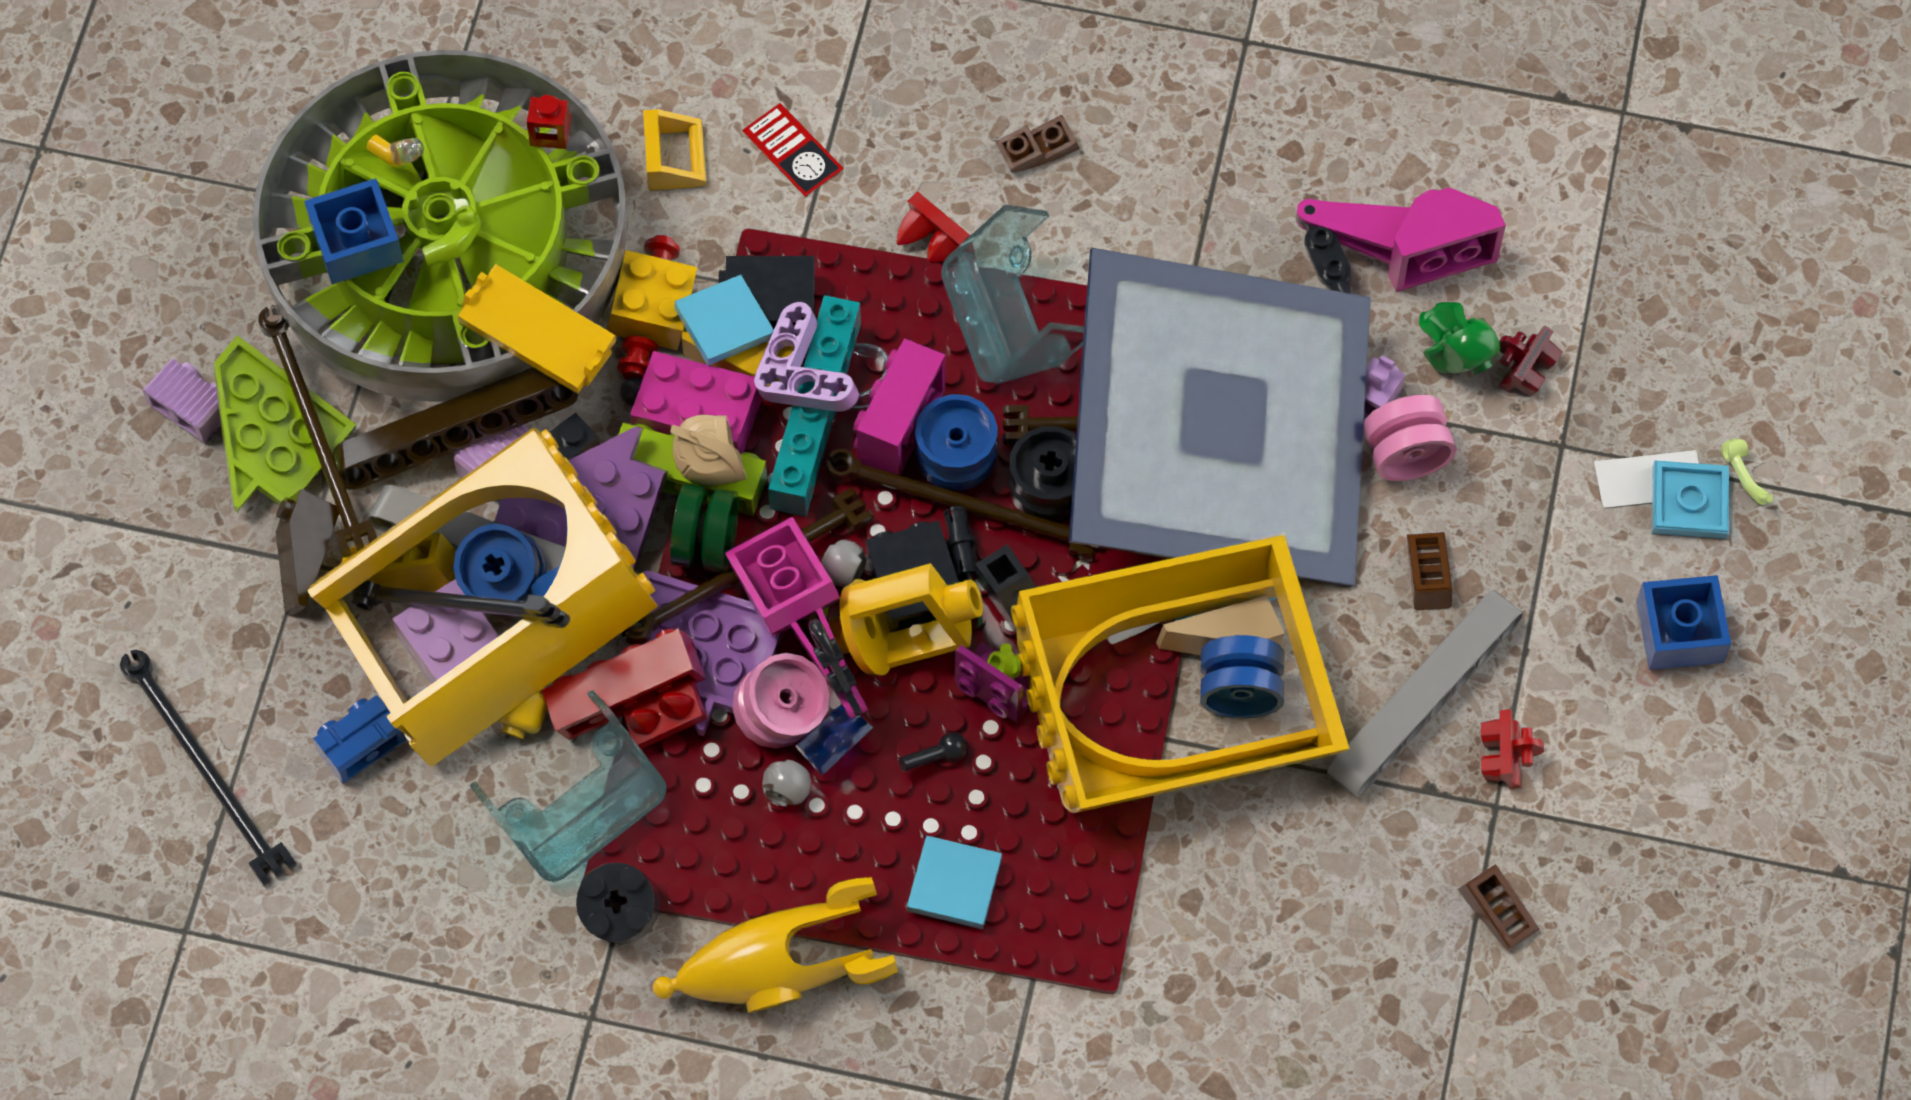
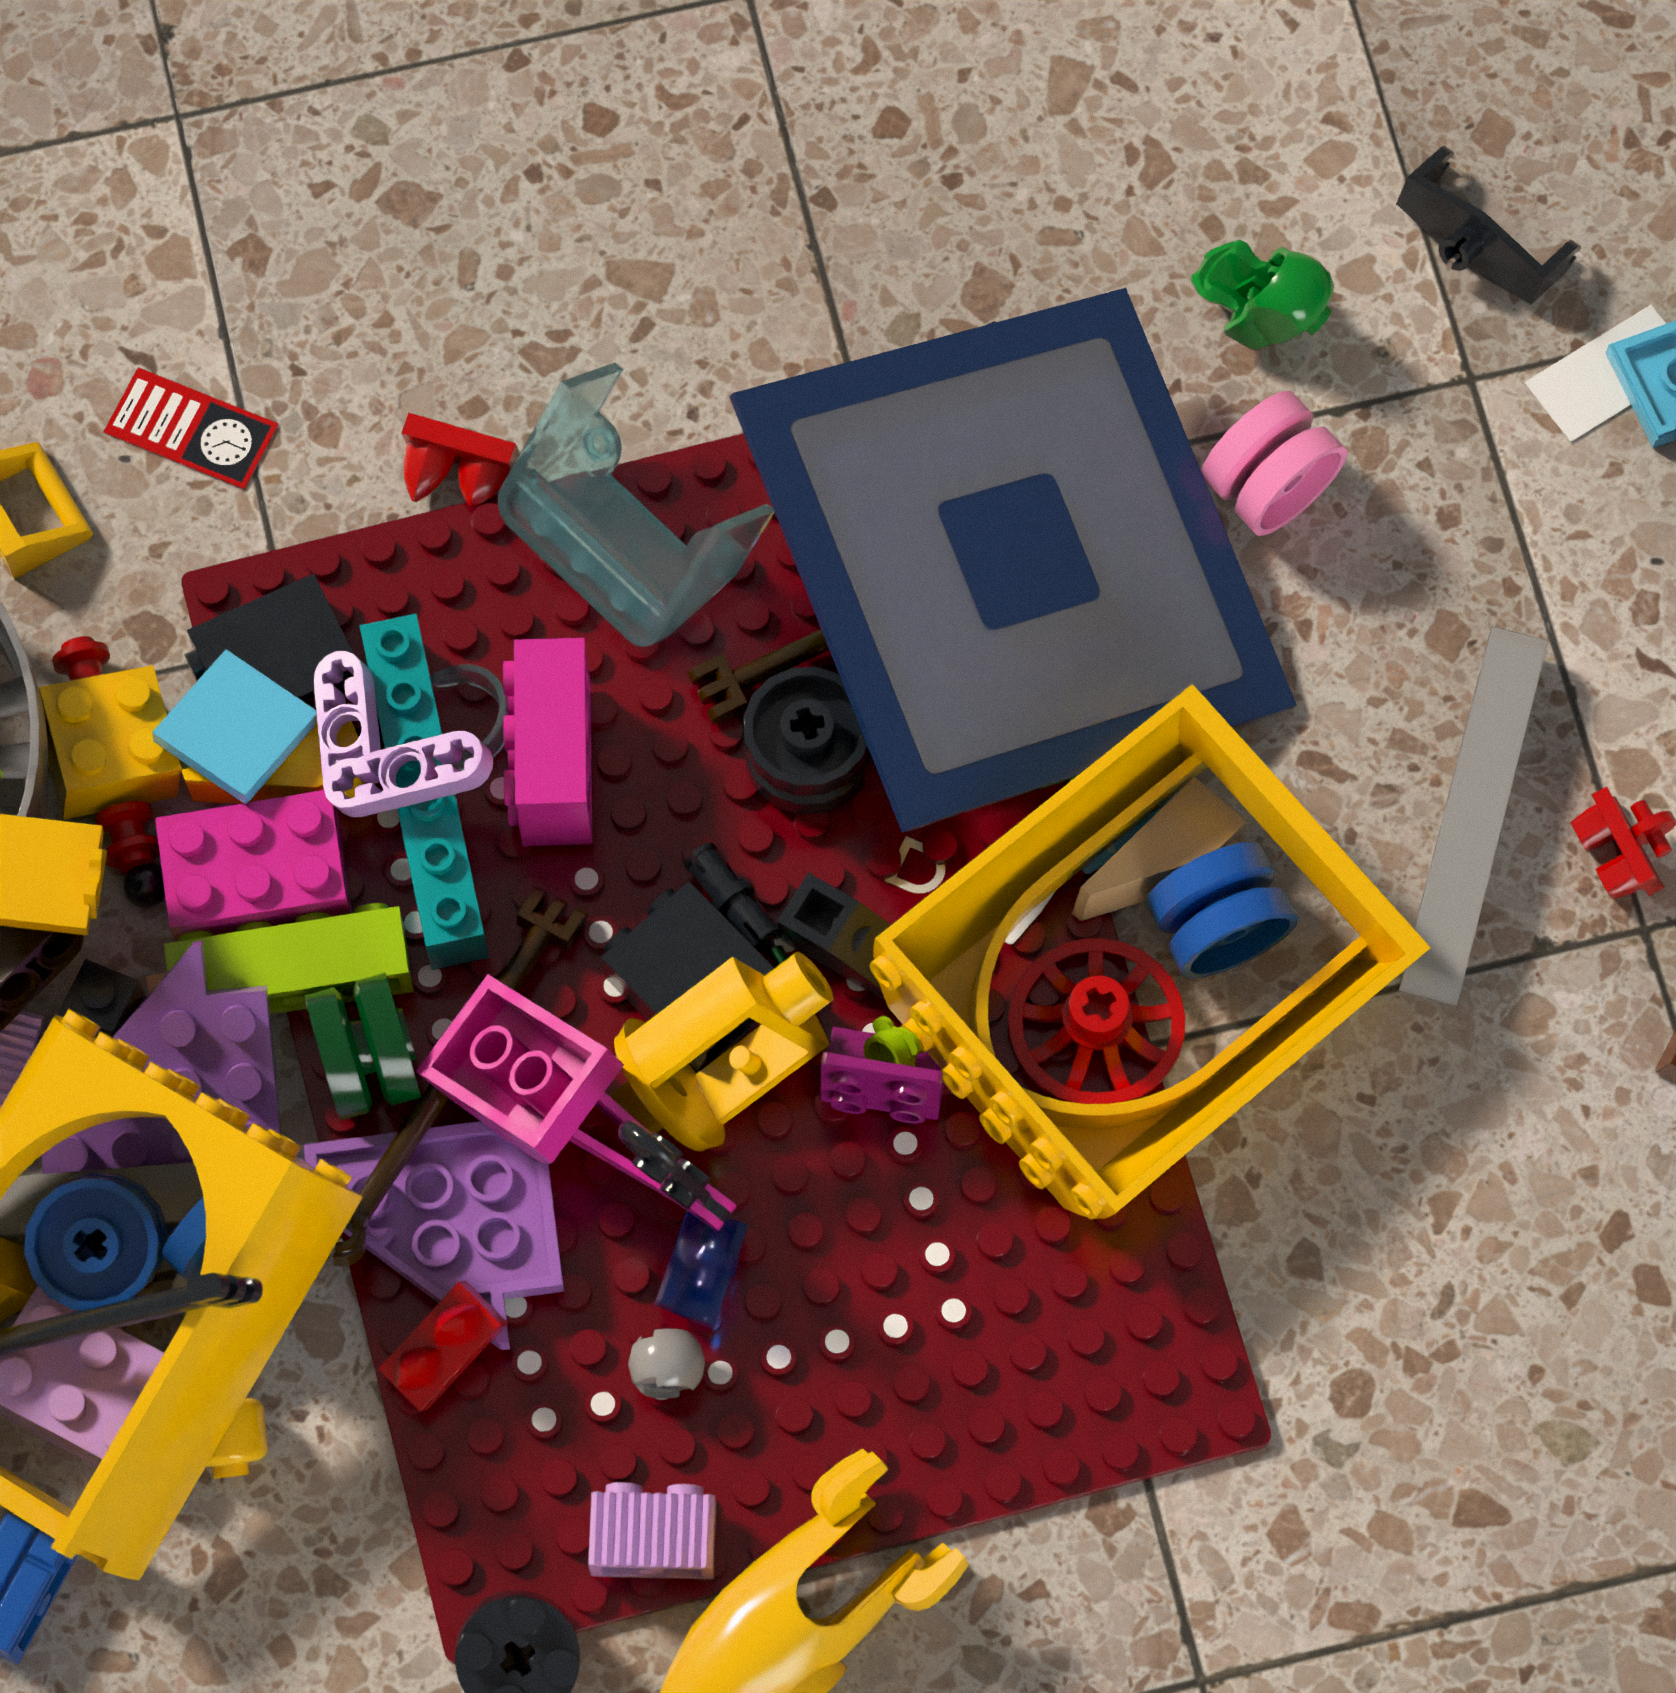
camera: 25 degrees left, 5 degrees up
(588, 813) = (402, 1539): clear light blue windscreen -> none
(622, 682) = (359, 1327): brick -> none
(706, 451) = (313, 935): tan helmet -> none
(729, 872) = (652, 1532): none -> lavender brick
(781, 700) = (602, 1249): bright pink wheel -> none
(844, 562) = (584, 1000): light grey piece -> none
(951, 498) = (529, 856): dark brown hinge -> none
(951, 748) = (866, 1200): black bar -> none
(954, 882) = (973, 1393): medium azure tile -> none
(956, 442) = (653, 754): blue wheel -> none
(1039, 146) = (538, 271): reddish brown slope -> none
(1138, 705) = (1097, 1019): none -> red wheel
(1383, 383) = (1196, 402): lavender brick -> none
(1422, 243) = (1141, 181): dark pink slope -> none
(1429, 593) = (1407, 666): reddish brown slope -> none
(1537, 349) = (1360, 279): dark red hips -> none
(1604, 364) = (1475, 237): none -> black piece

